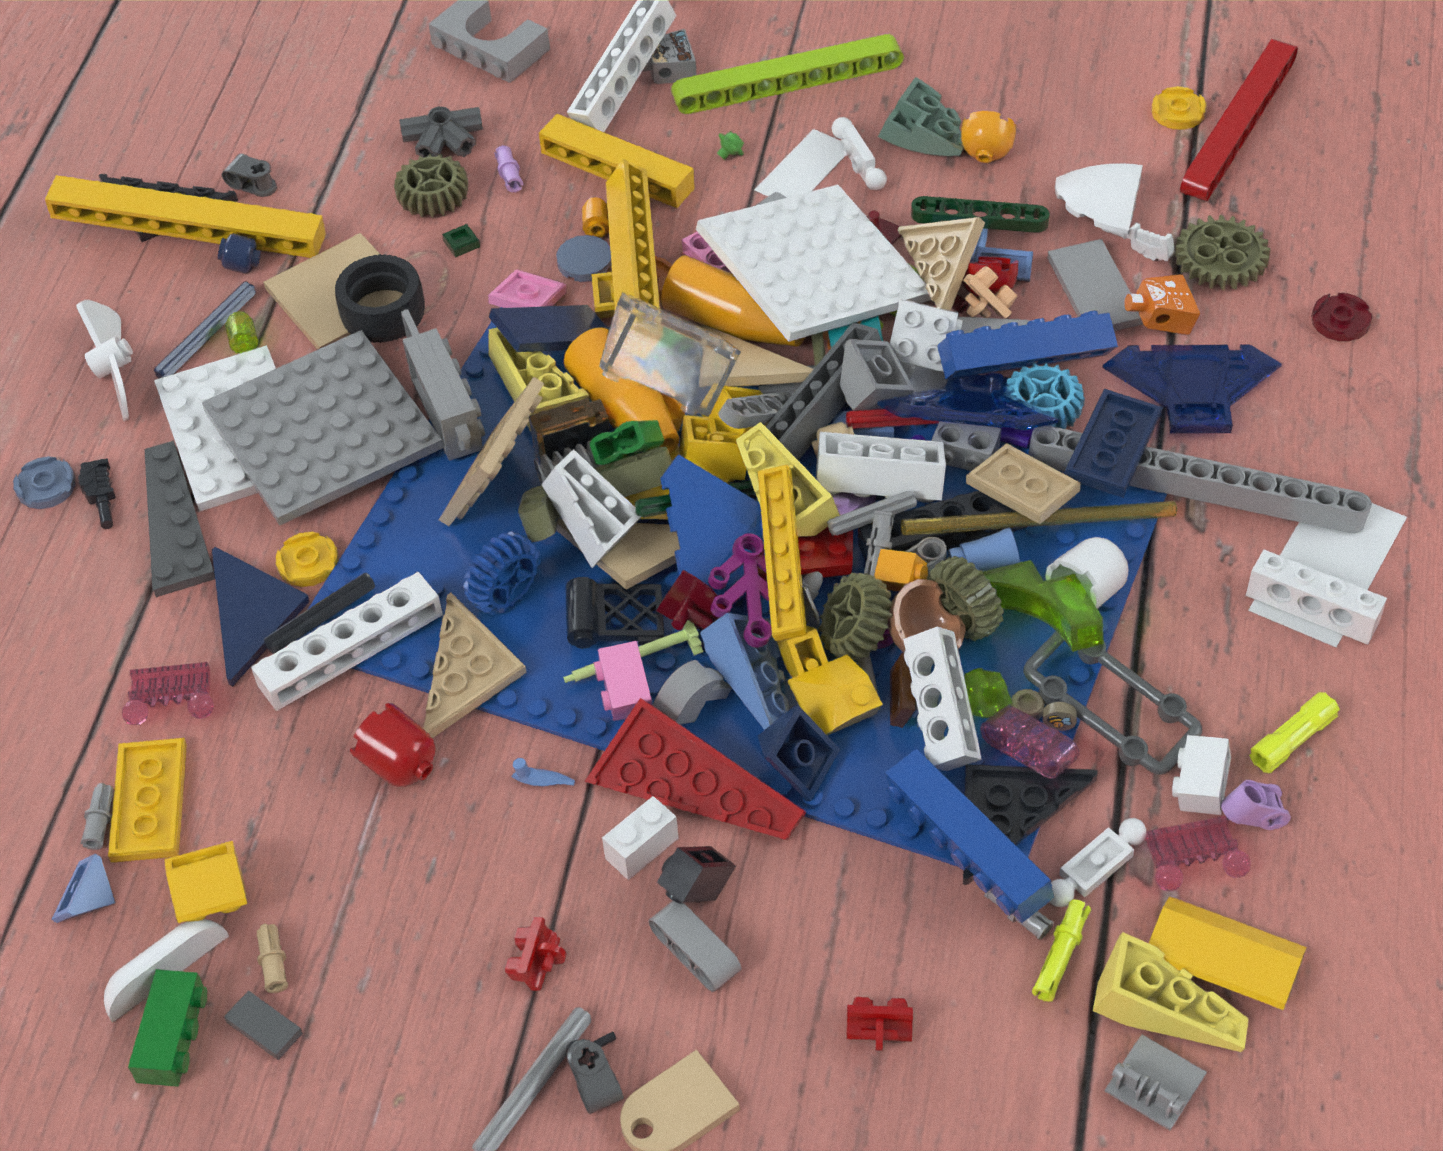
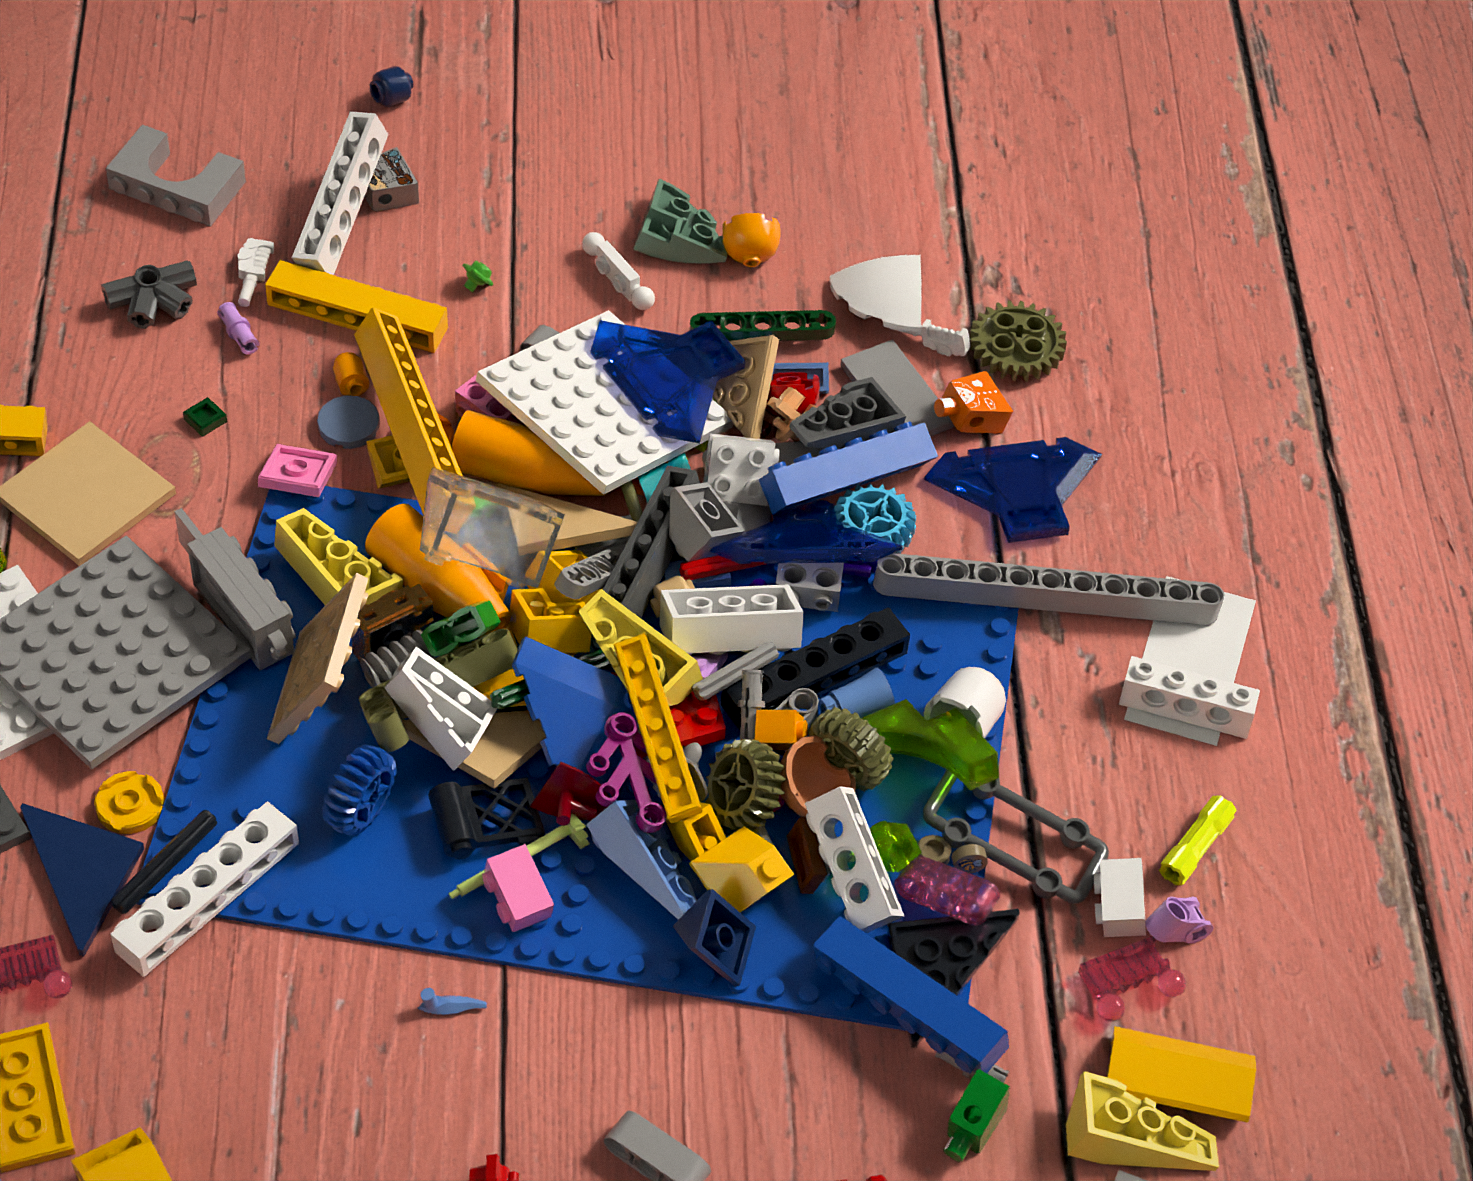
camera: 20 degrees left, 0 degrees up
(373, 275) = (130, 468): black tyre -> none
(394, 747) = (291, 998): red cylinder -> none
(431, 185) = (156, 357): olive gear -> none
(467, 668) = (343, 898): tan tile -> none
(534, 119) = (251, 266): none -> white piece
(544, 327) = (337, 508): dark blue tile -> none
(640, 837) = (574, 1052): white brick -> none
(682, 771) = (593, 973): red wing -> none
(688, 690) = (589, 890): light grey brick -> none
(695, 874) = (644, 1082): black brick -> none
(787, 74) = (517, 187): lime beam -> none
(803, 166) = (560, 291): white sticker -> none
(875, 242) = (668, 372): none -> clear blue plate
(1008, 957) = (976, 1115): none -> green torso
(1017, 520) = (901, 653): clear yellow piece -> none
(1023, 483) = (881, 618): tan tile -> none
(1044, 296) = (852, 413): none -> dark grey wedge
(1066, 938) = (1025, 1087): neon yellow pin -> none
(1097, 861) = (1039, 1001): white plate -> none
(1113, 442) = (961, 563): dark blue tile -> none
(1178, 108) = (937, 185): yellow tile -> none
(1238, 120) = (1002, 193): red beam -> none
(1341, 317) = (1149, 396): dark red tile -> none

